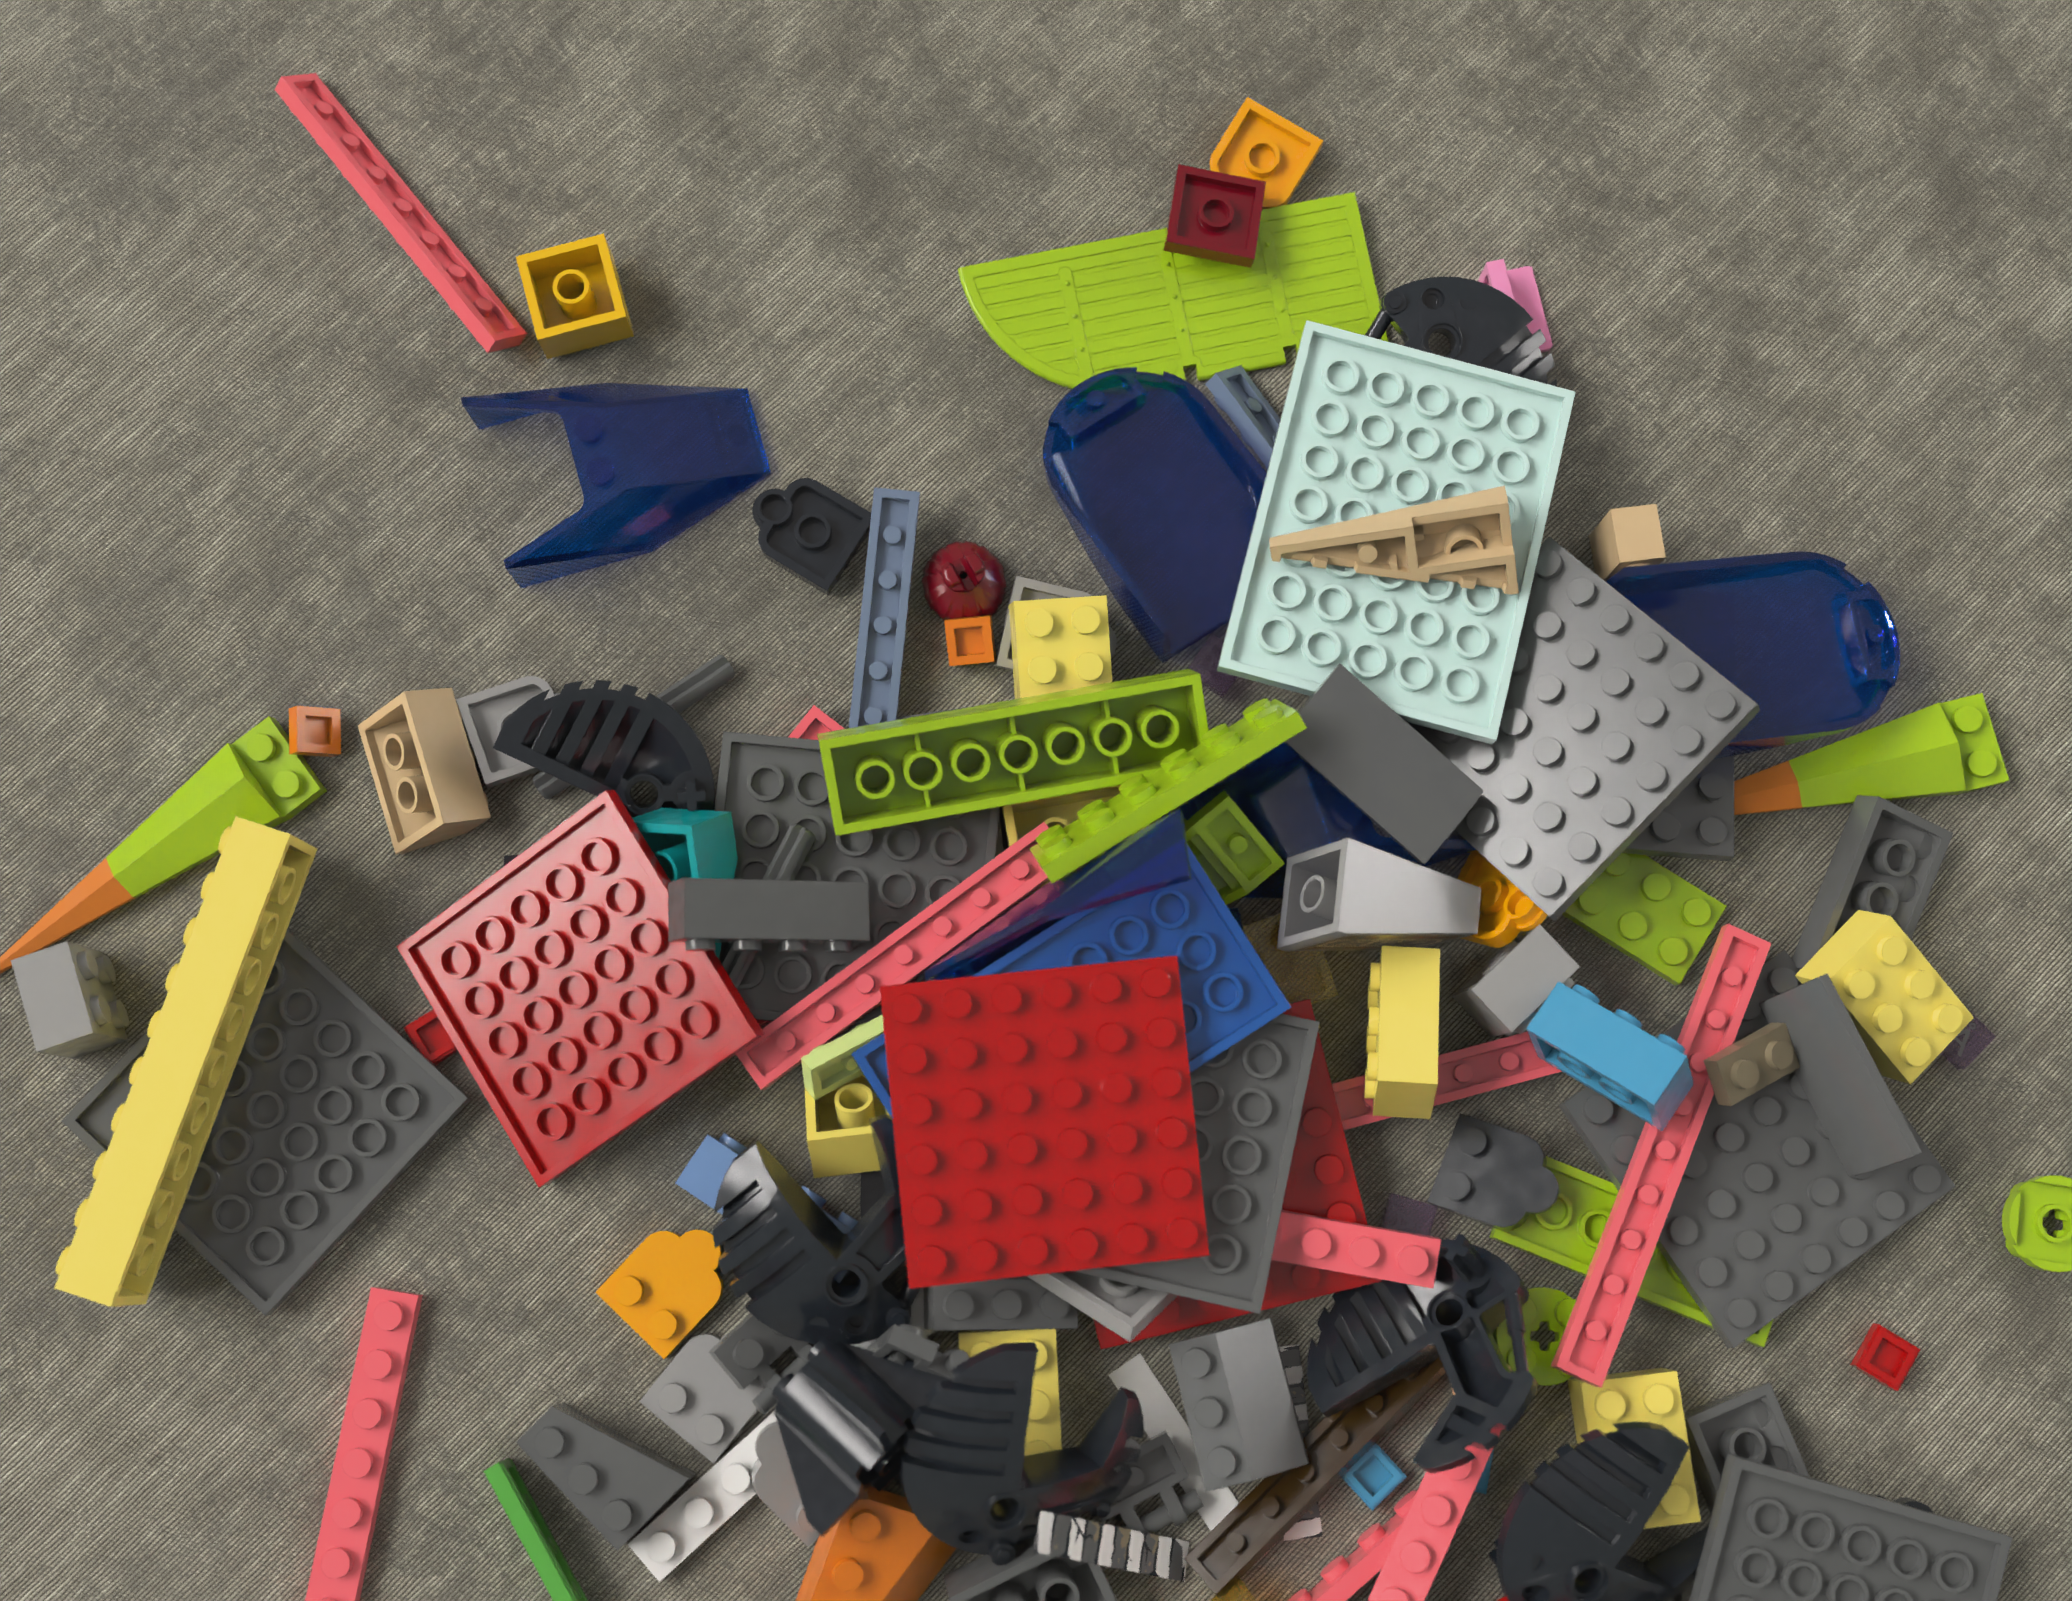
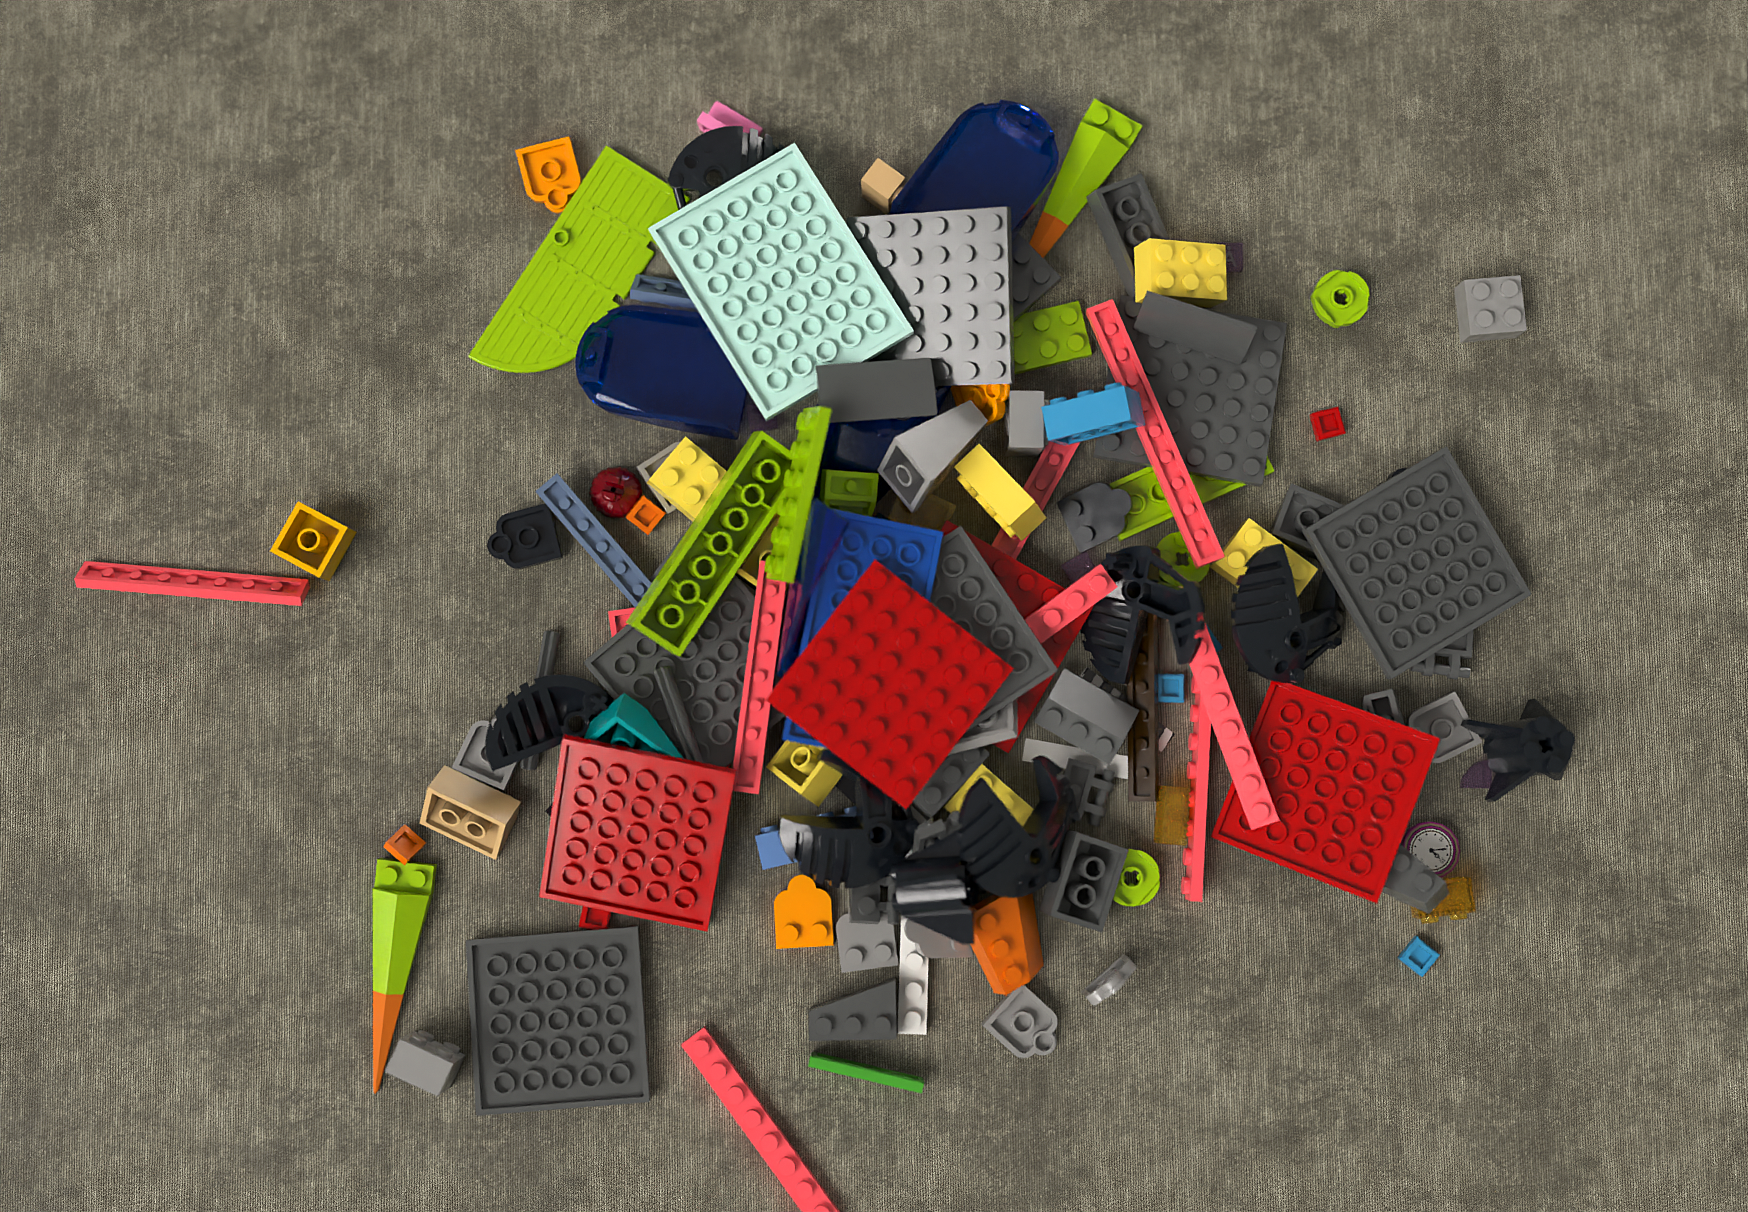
camera: 40 degrees left, 5 degrees up
(185, 1066) = (505, 1034): light yellow brick -> none
(645, 464) = (422, 579): clear blue windscreen -> none
(768, 912) = (685, 717): dark grey brick -> none
(833, 1064) = (778, 751): yellowish green plate -> none
(1111, 1546) = (1094, 826): sticker -> none
(1214, 216) = (557, 219): dark red plate -> none
(1445, 539) = (805, 266): tan wedge -> none
(1751, 1063) = (1154, 358): dark tan plate -> none

